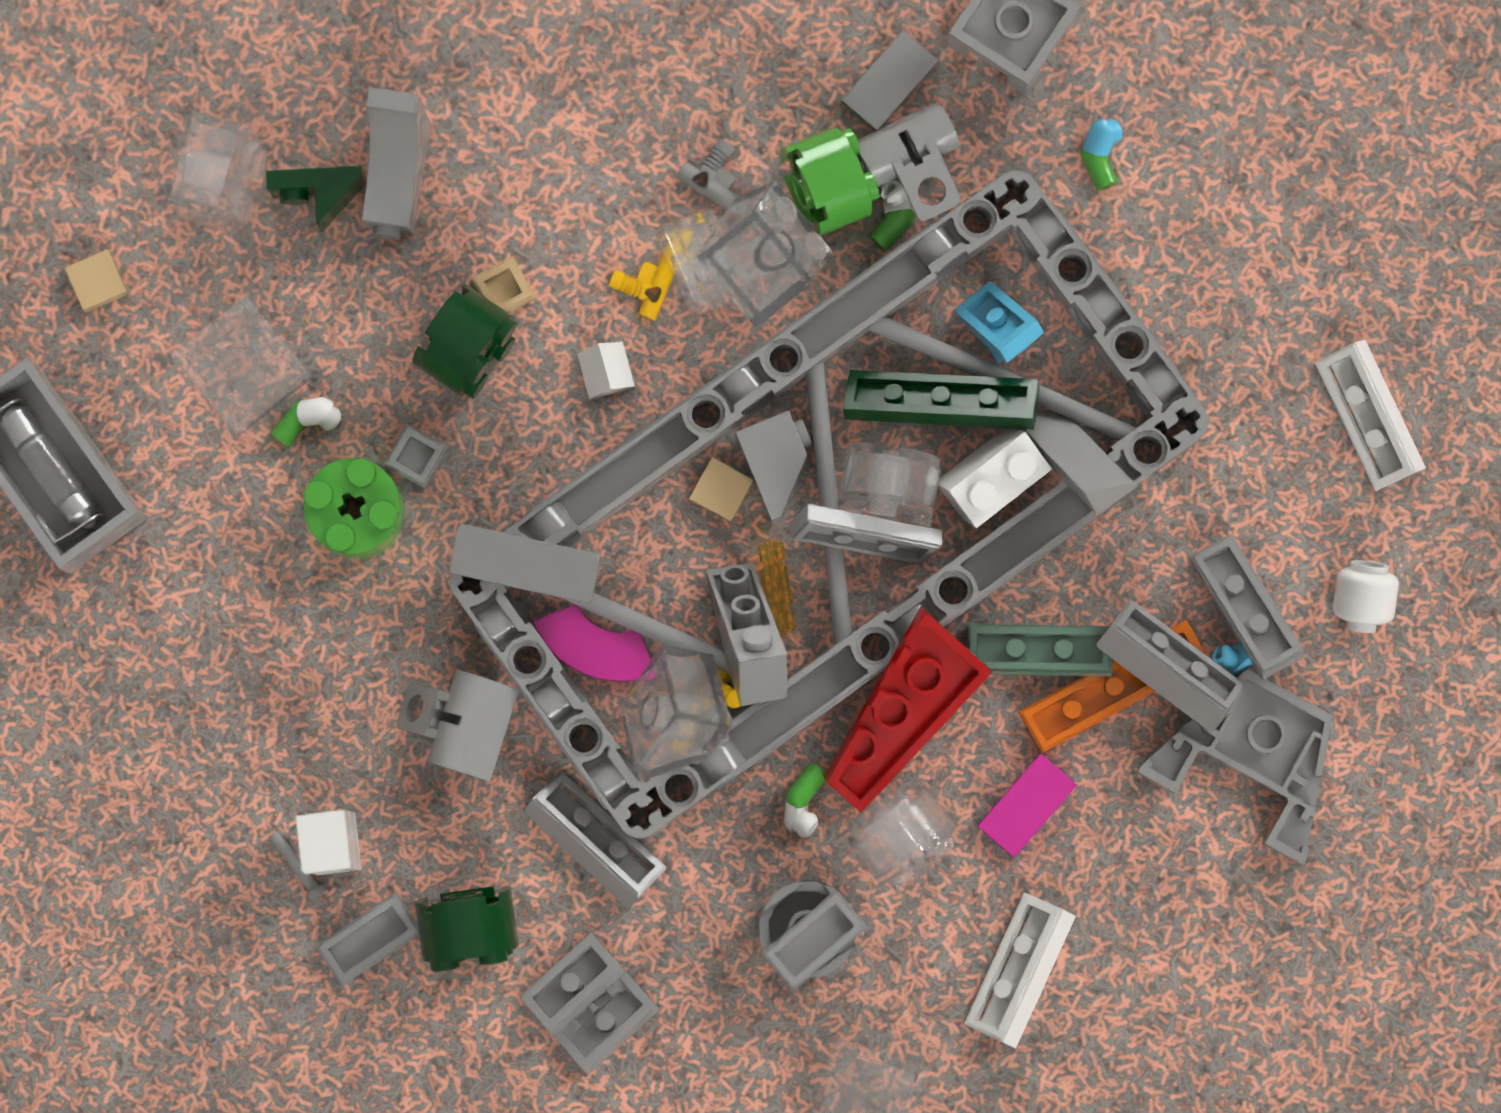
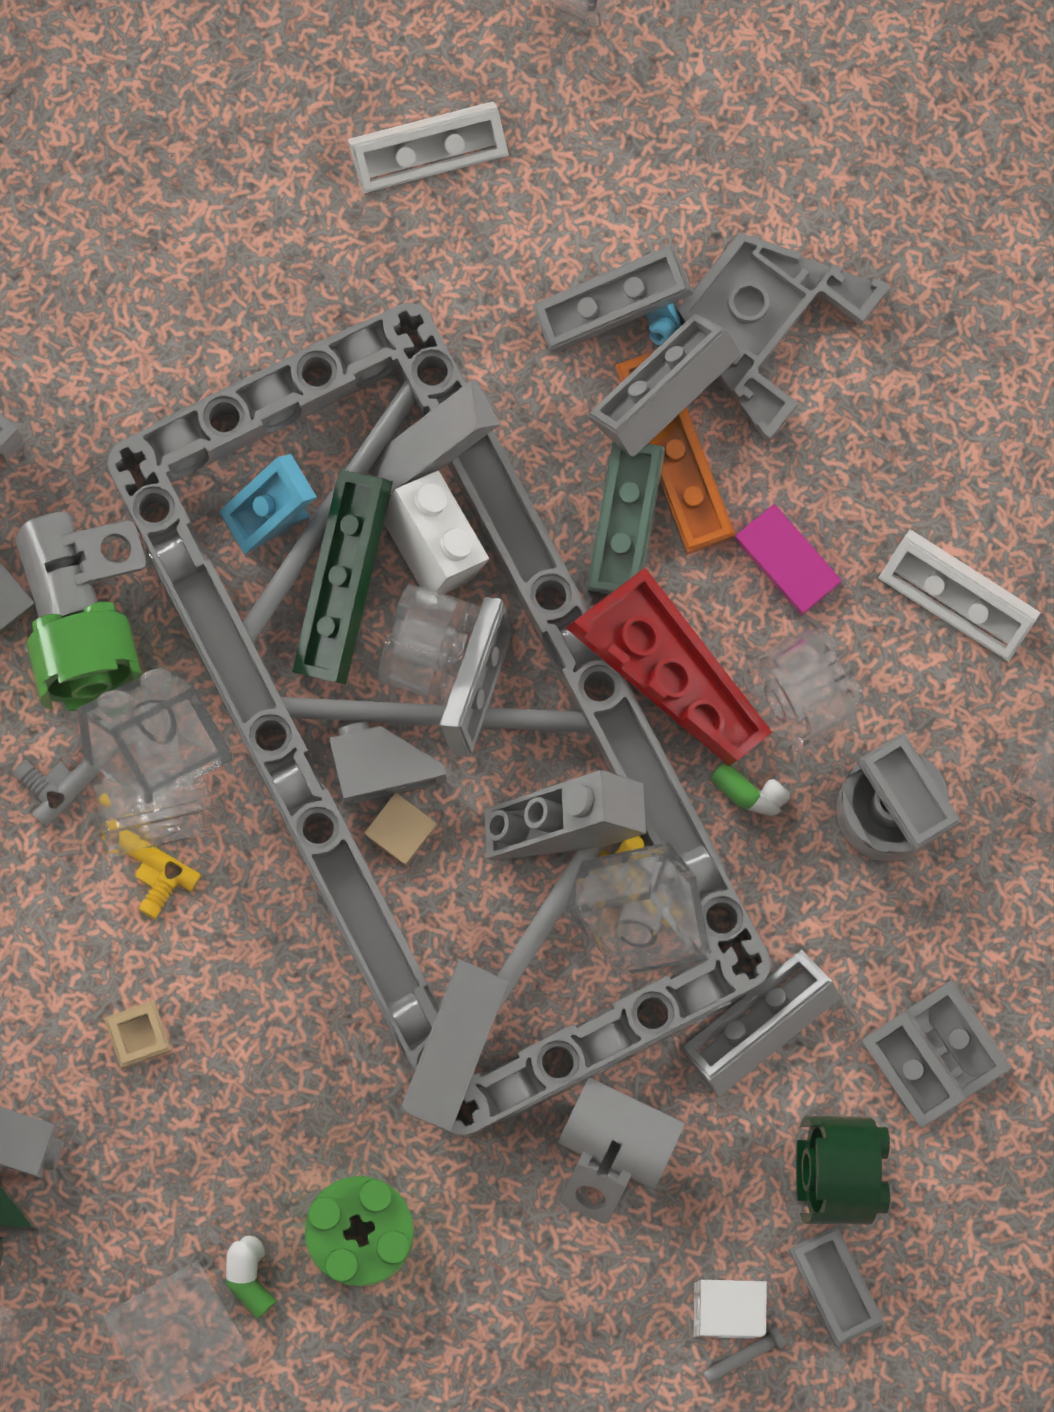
camera: 95 degrees left, 5 degrees down
(416, 456) = (309, 1158): light grey tile -> none
(465, 341) = (193, 1080): dark green brick -> none
(591, 649) = (554, 993): dark pink tile -> none
(605, 369) = (247, 935): white slope -> none
(777, 584) = (508, 784): clear yellow axle -> none
(898, 215) = (132, 595): bright green arm -> none
(1096, 149) = (98, 377): arm -> none
(1365, 595) = (618, 179): white head -> none

